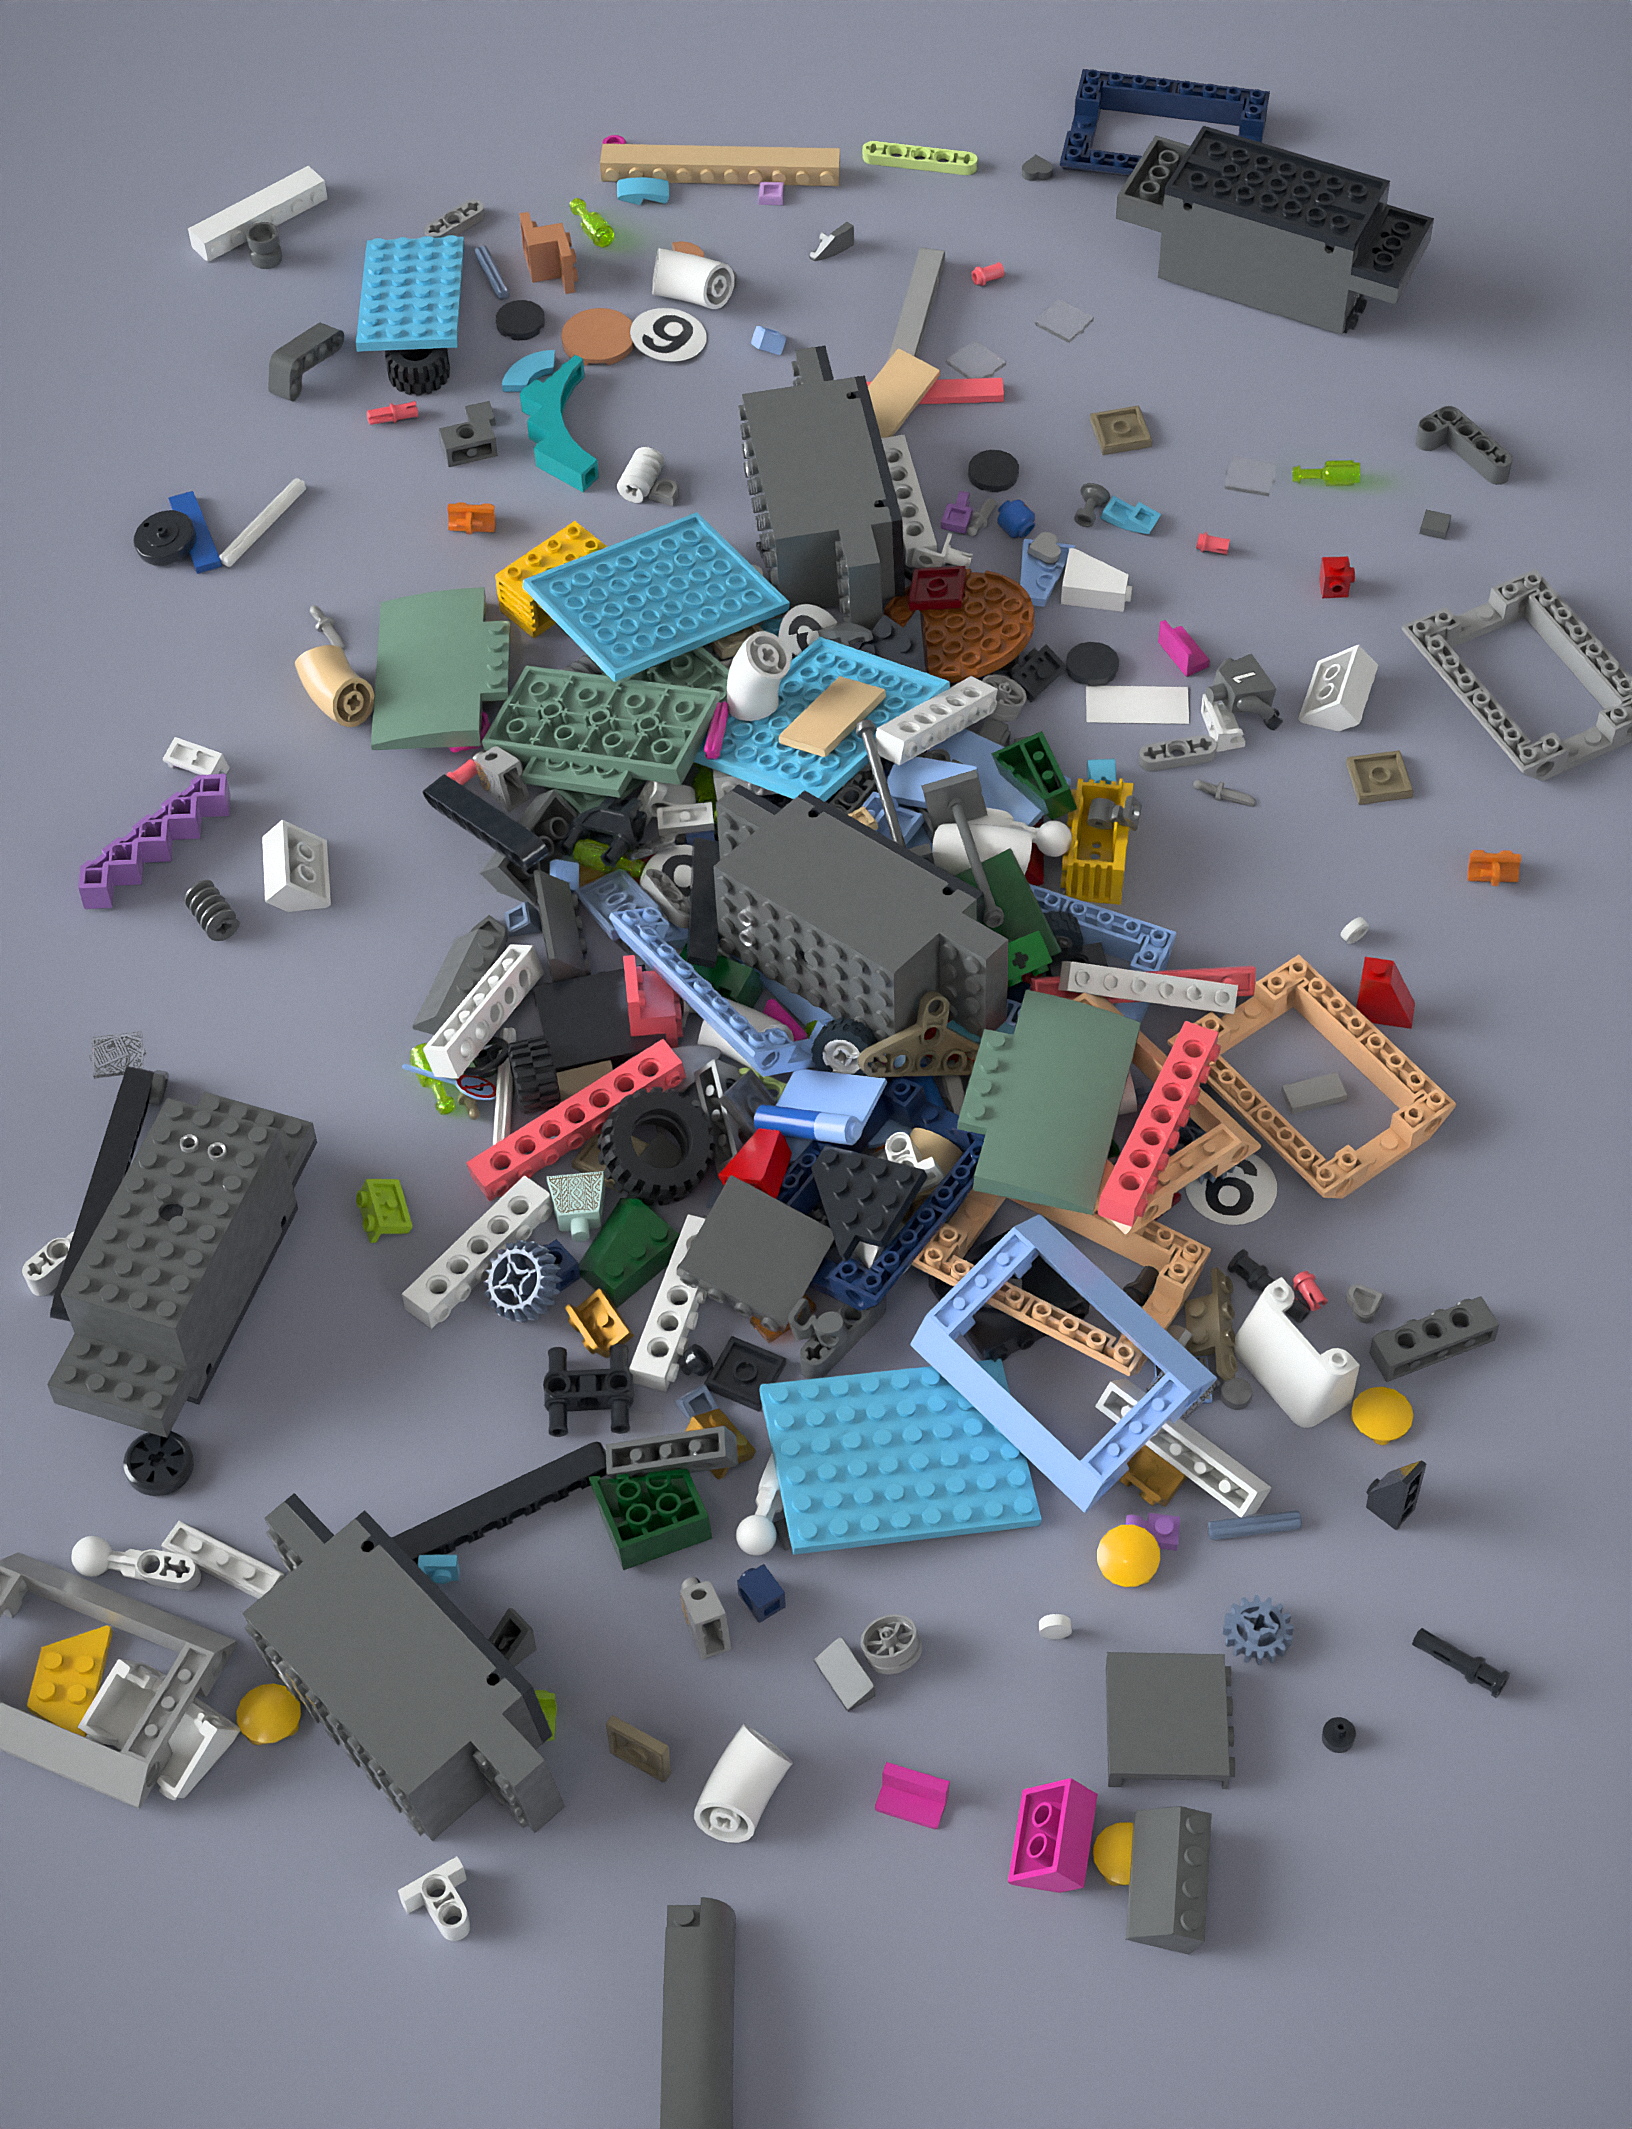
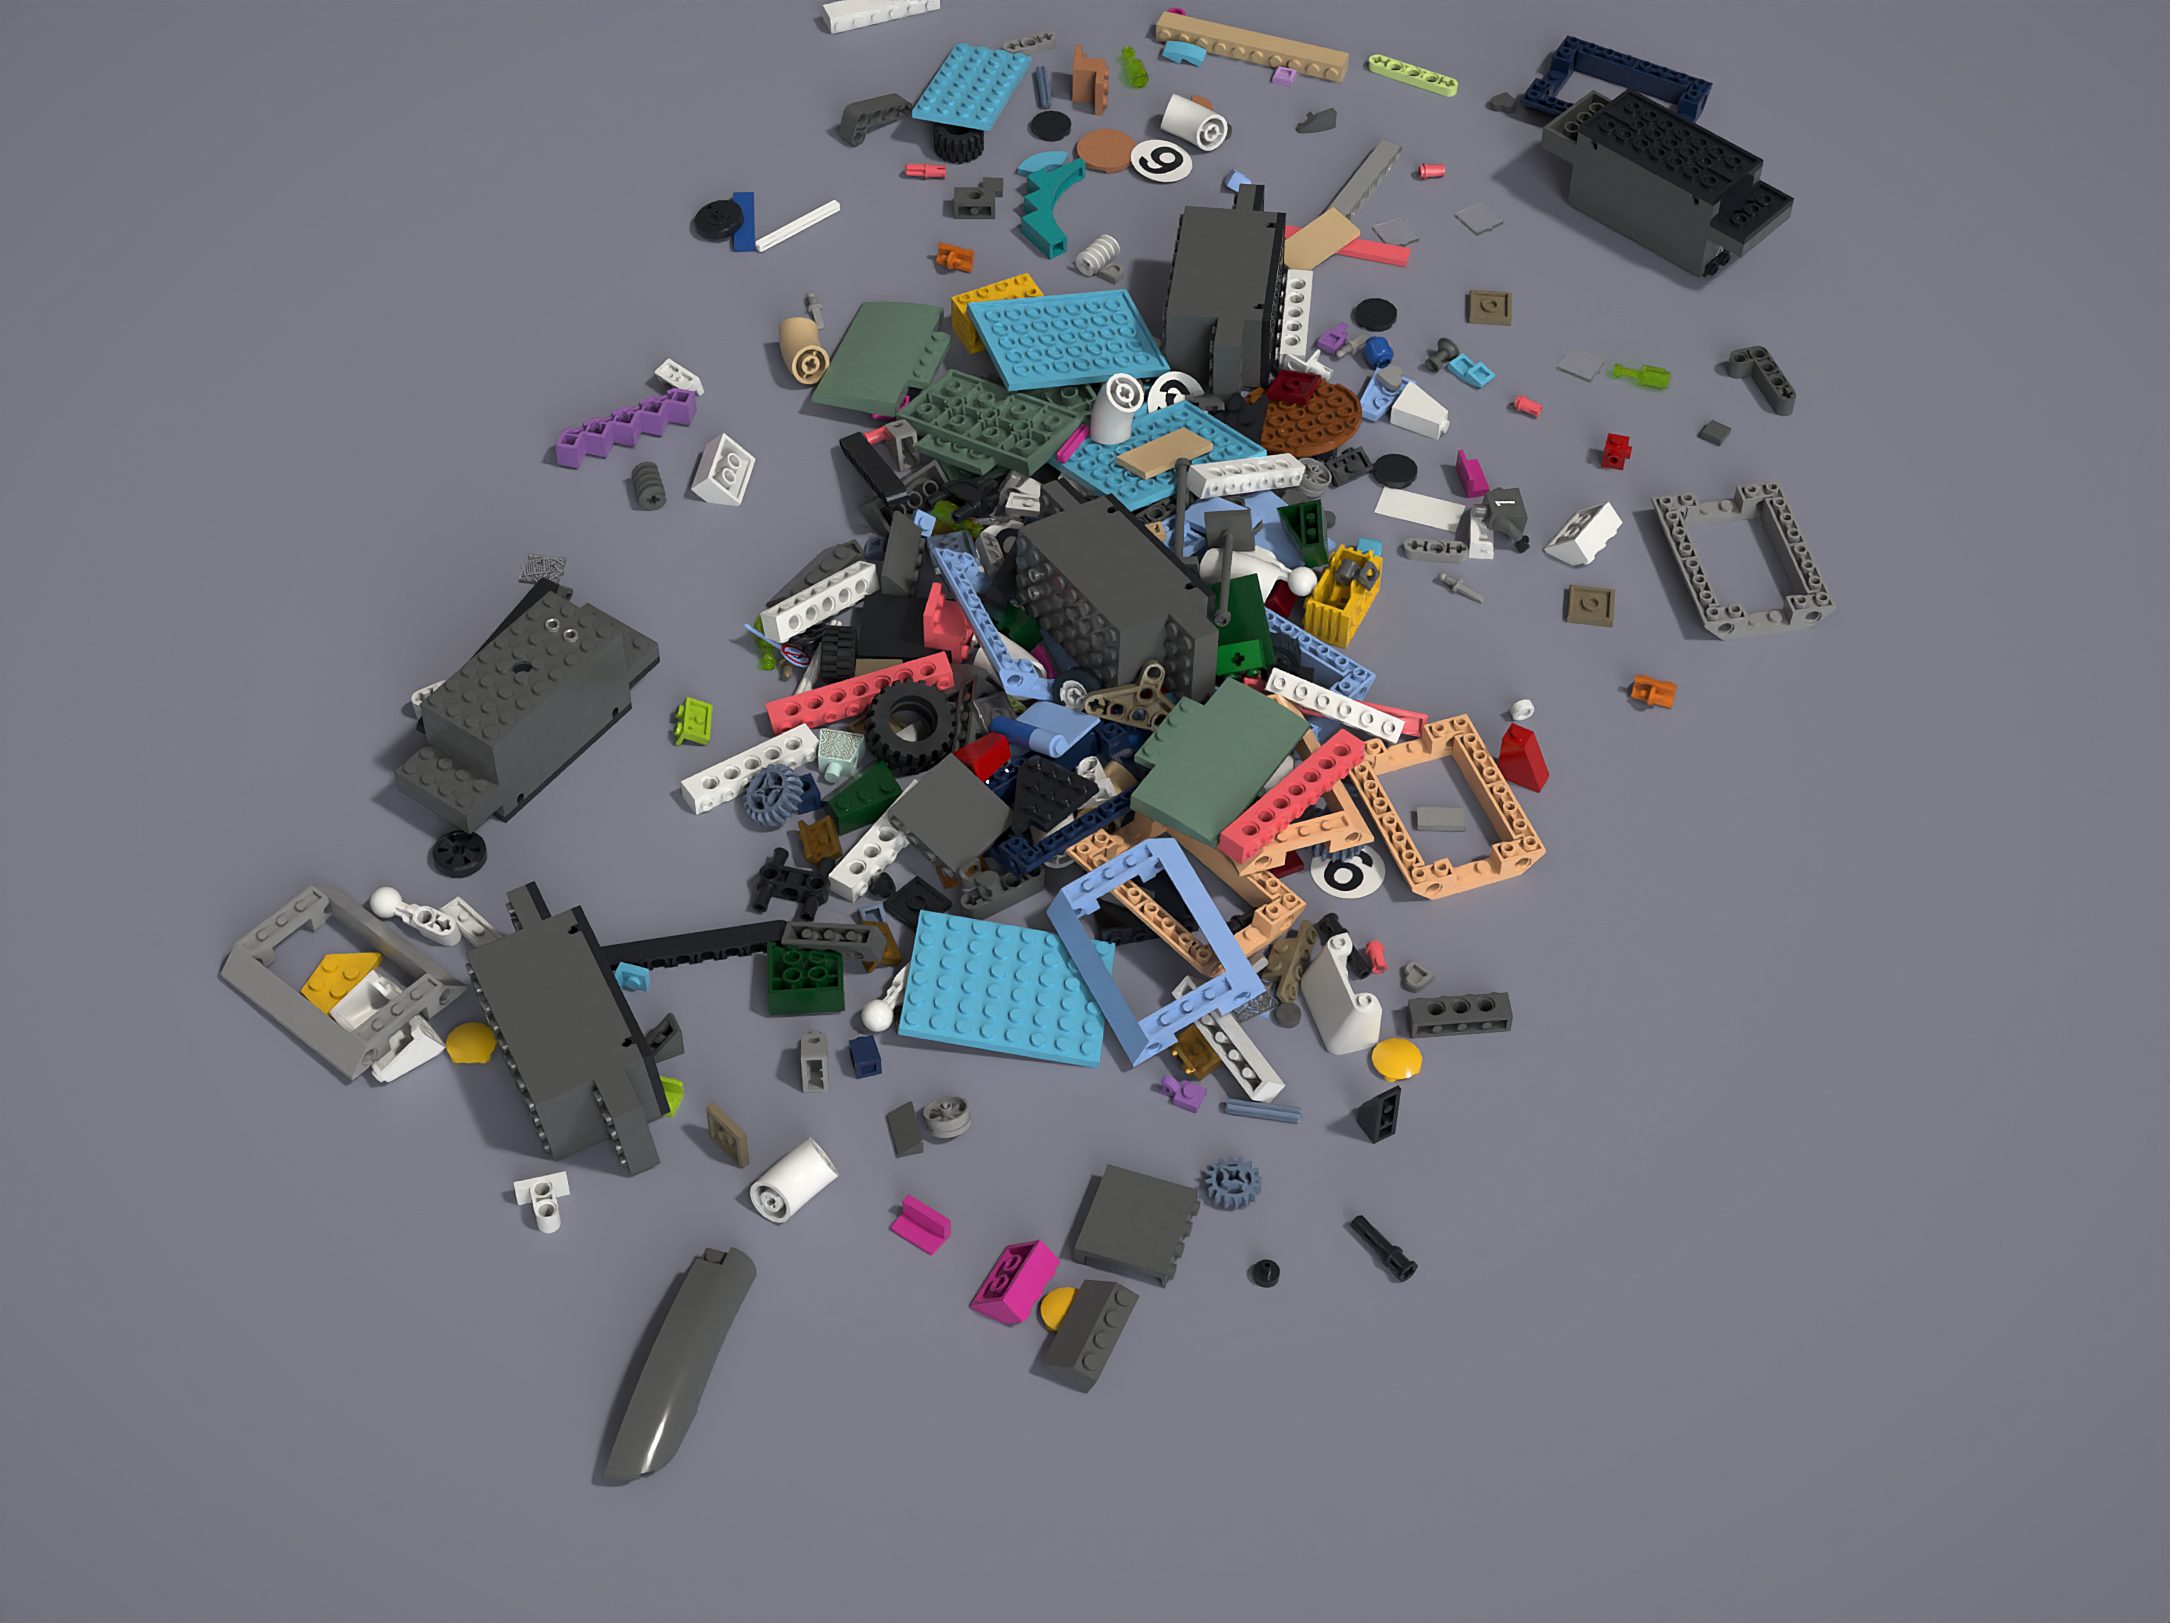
camera: 15 degrees right, 5 degrees down
(264, 245) = (876, 30): dark grey wheel -> none
(1055, 1626) = (1078, 1138): white tile -> none
(1128, 1556) = (1155, 1104): yellow dish -> none

